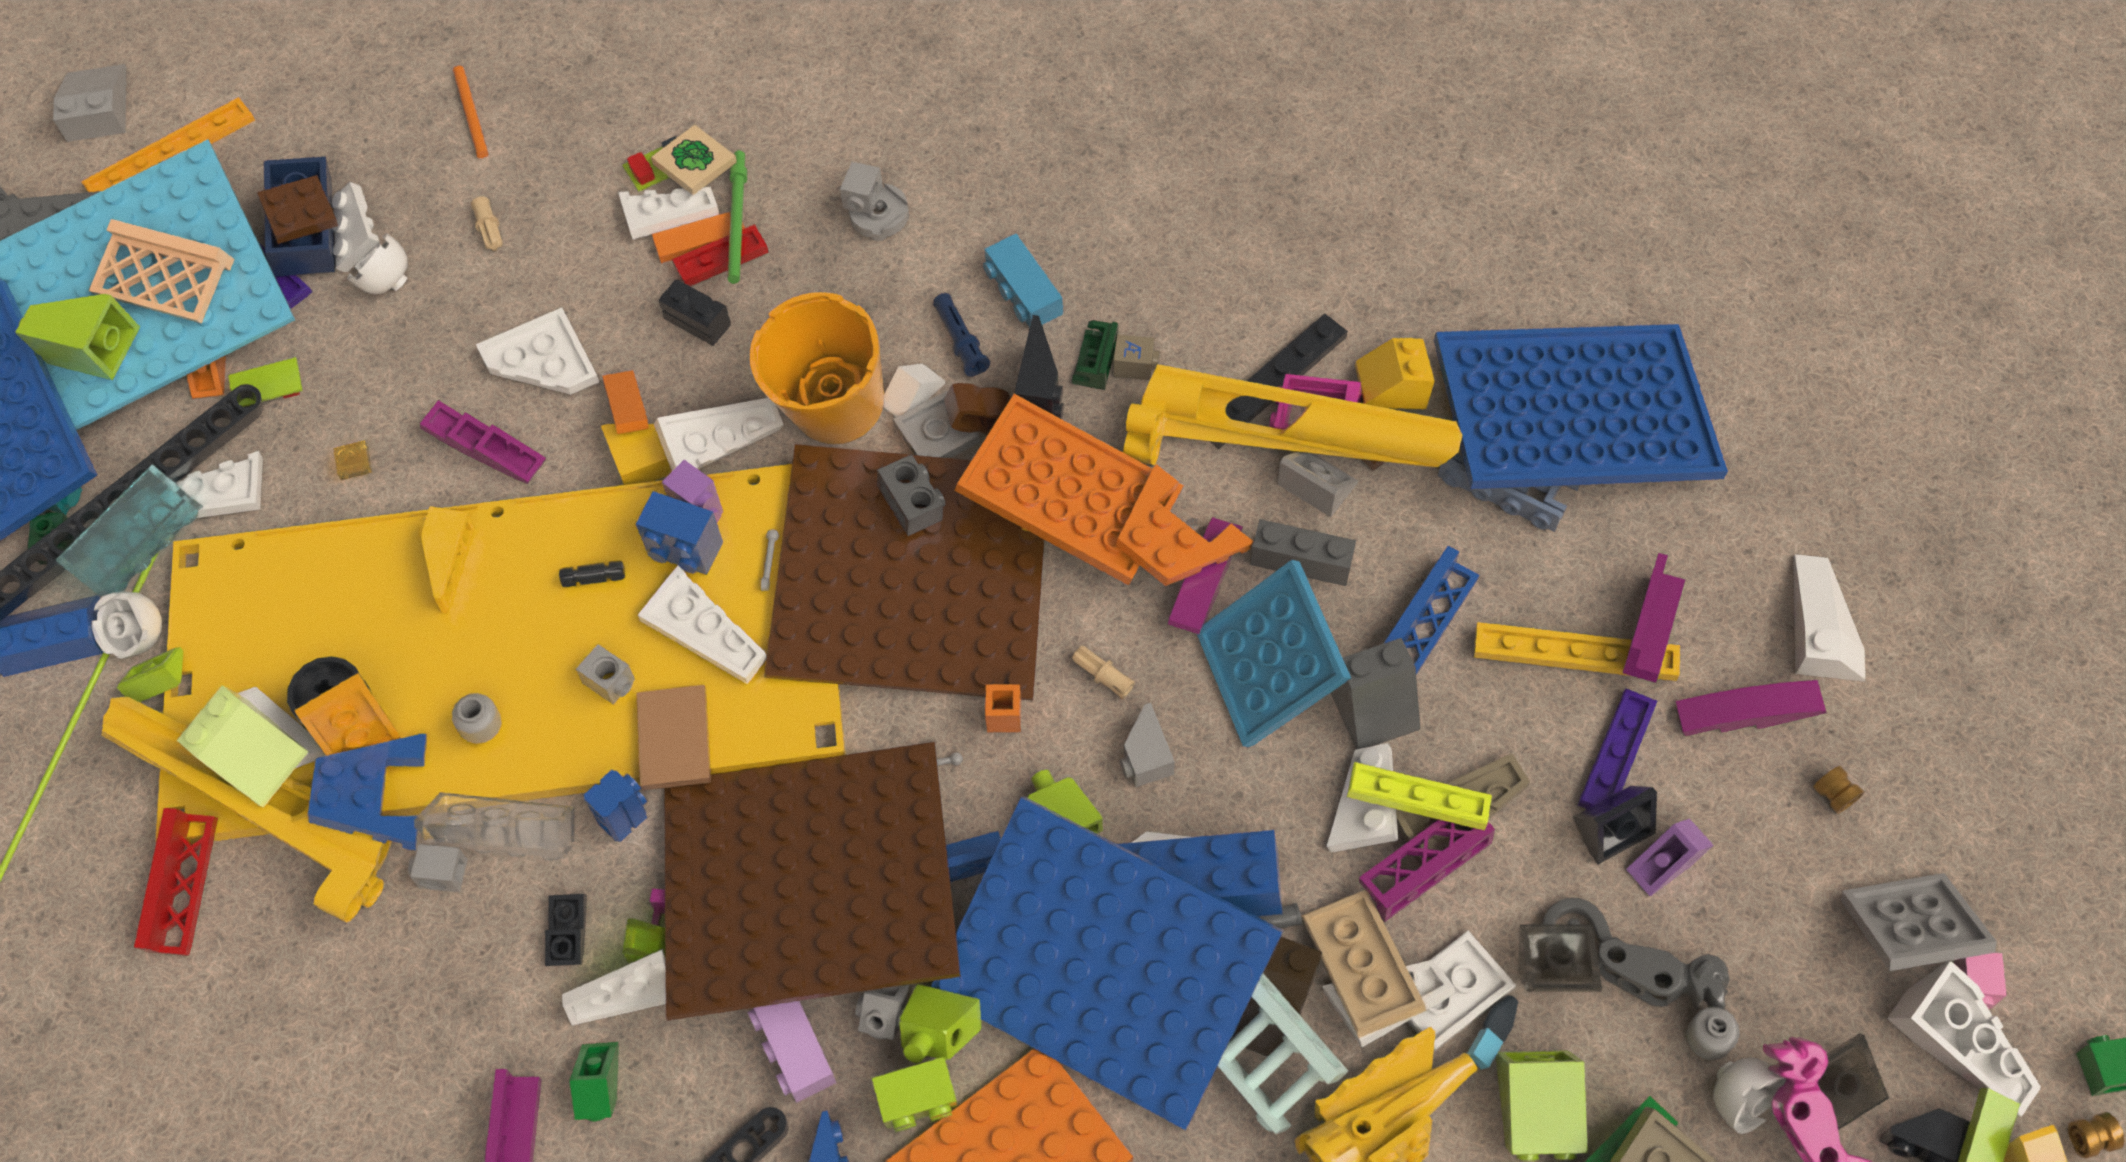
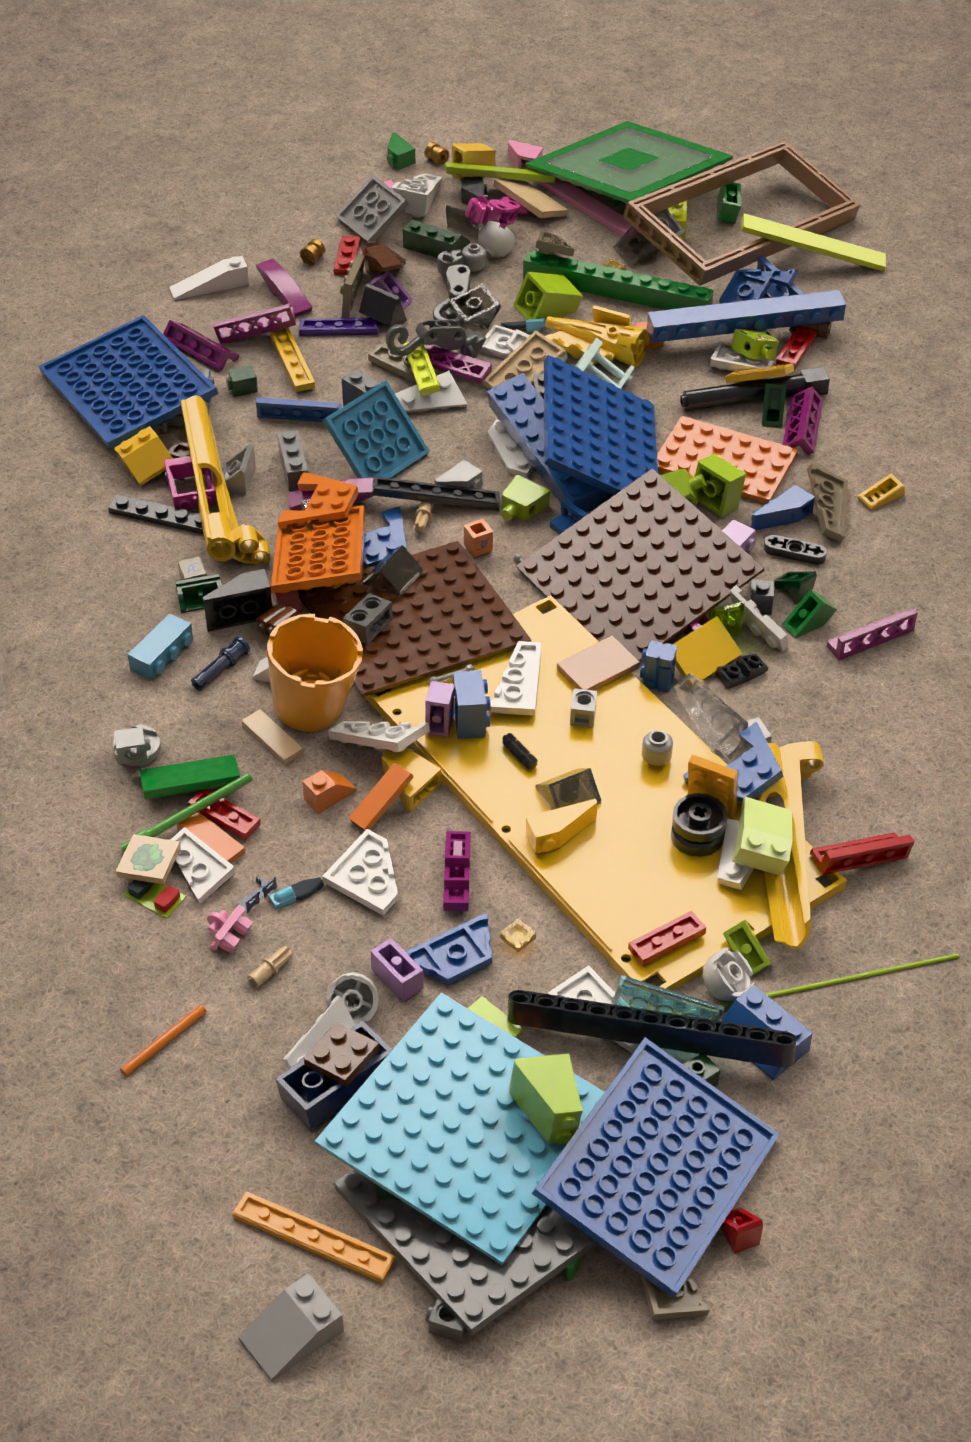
camera: 120 degrees left, 15 degrees down
(175, 250) = (436, 1097): light nougat fence -> none
(218, 588) = (667, 938): none -> plate
(377, 392) = (455, 951): none -> wing
(384, 319) = (397, 969): none -> medium lavender brick
(496, 595) = (569, 788): none -> clear smoke slope
(560, 198) = (224, 938): none -> bright pink hips
(569, 286) = (295, 892): none -> piece
(591, 243) = (262, 891): none -> piece
(615, 885) = (705, 650): none -> yellow tile
(665, 1094) = (797, 583): none -> dark green slope
(682, 1040) = (762, 595): none -> black slope
(684, 363) = (326, 789): none -> orange slope
(694, 312) = (283, 799): black brick -> none
(792, 239) = (189, 776): none -> green tile
(993, 572) = (394, 572): none -> clear smoke slope
(1078, 604) = (385, 539): none -> wing
(1128, 699) = (435, 493): none -> black tile
(1470, 849) = (439, 334): none -> dark grey animal
(1526, 560) = (242, 381): none -> dark green brick
(1646, 532) = (198, 345): none -> magenta fence
(1710, 804) = (351, 284): none -> dark tan wing
(1748, 871) = (381, 258): none -> reddish brown wedge
(1806, 999) = (430, 239): none -> dark green slope
(1818, 847) = (347, 252): none -> red plate

